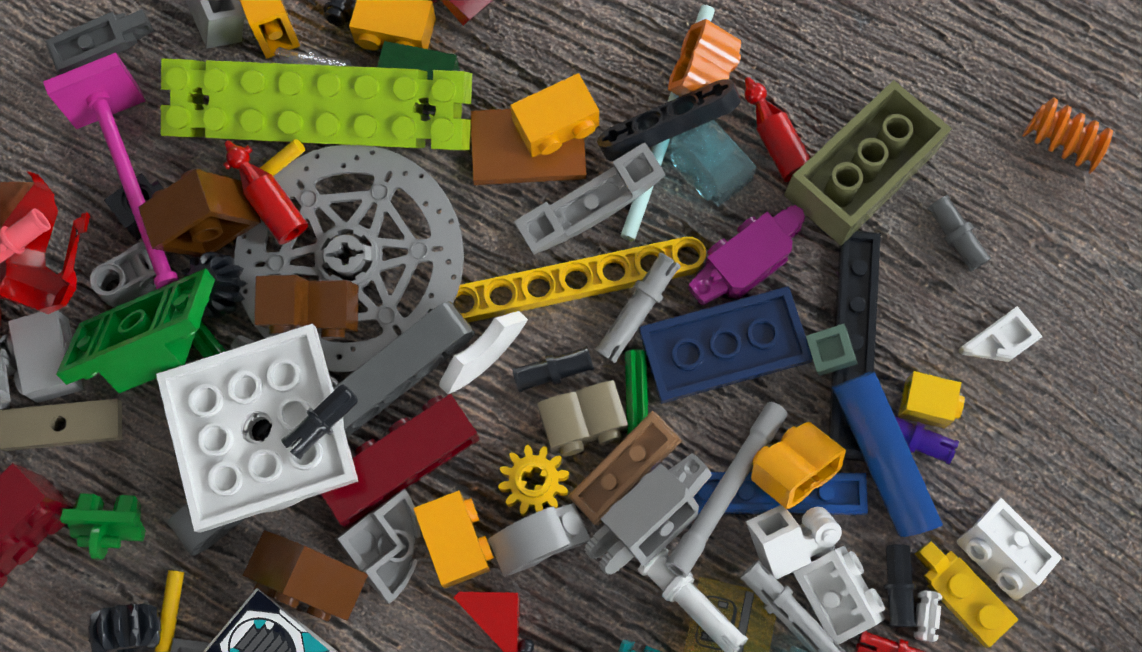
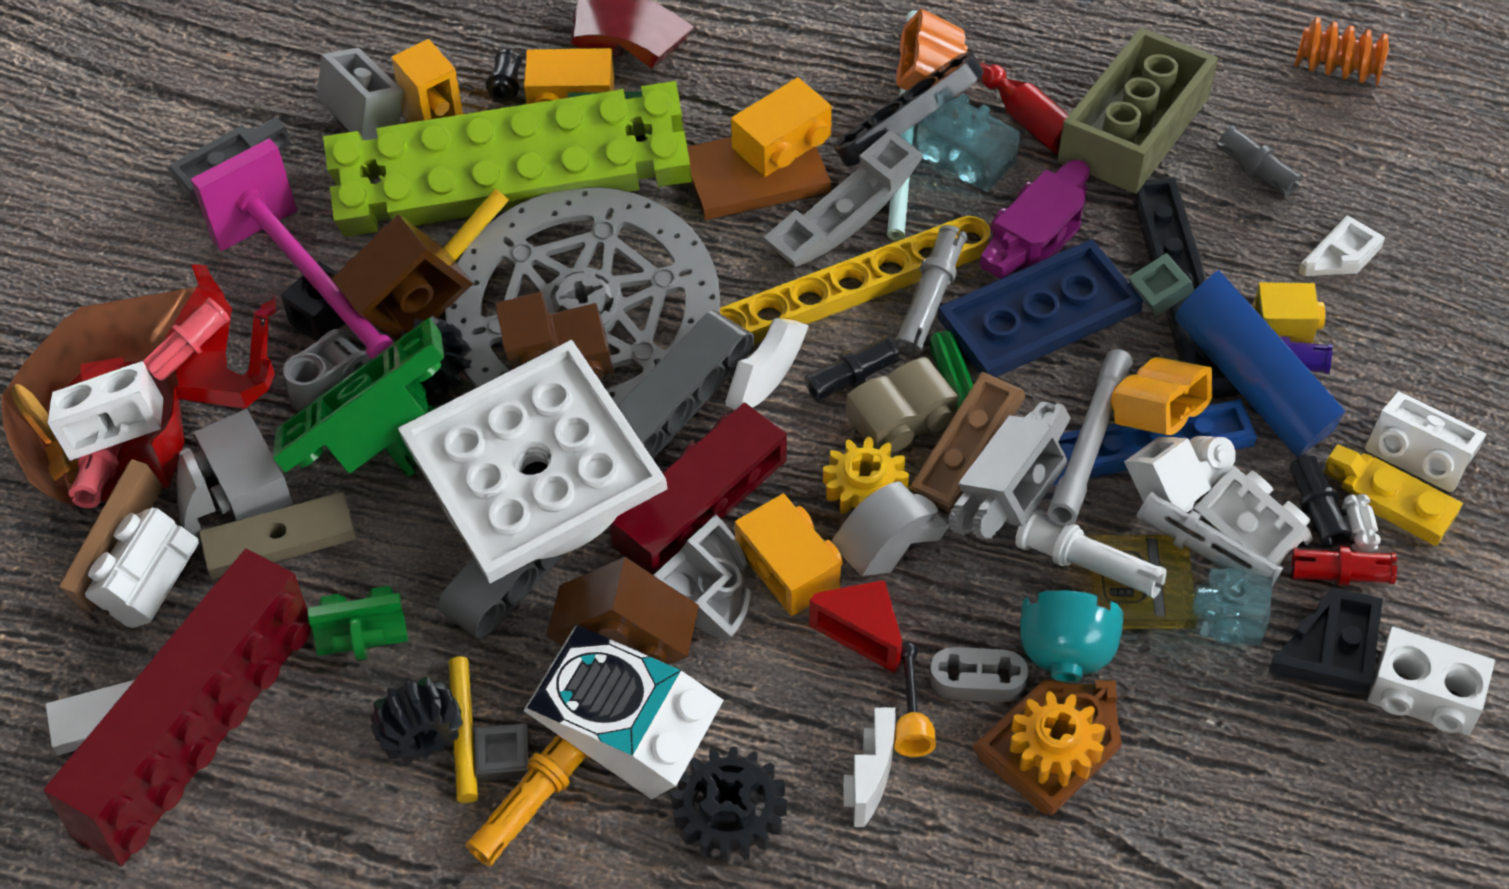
camera: 15 degrees left, 20 degrees down
(266, 196) = (476, 252): red wheel -> none
(320, 420) = (611, 421): black axle -> none

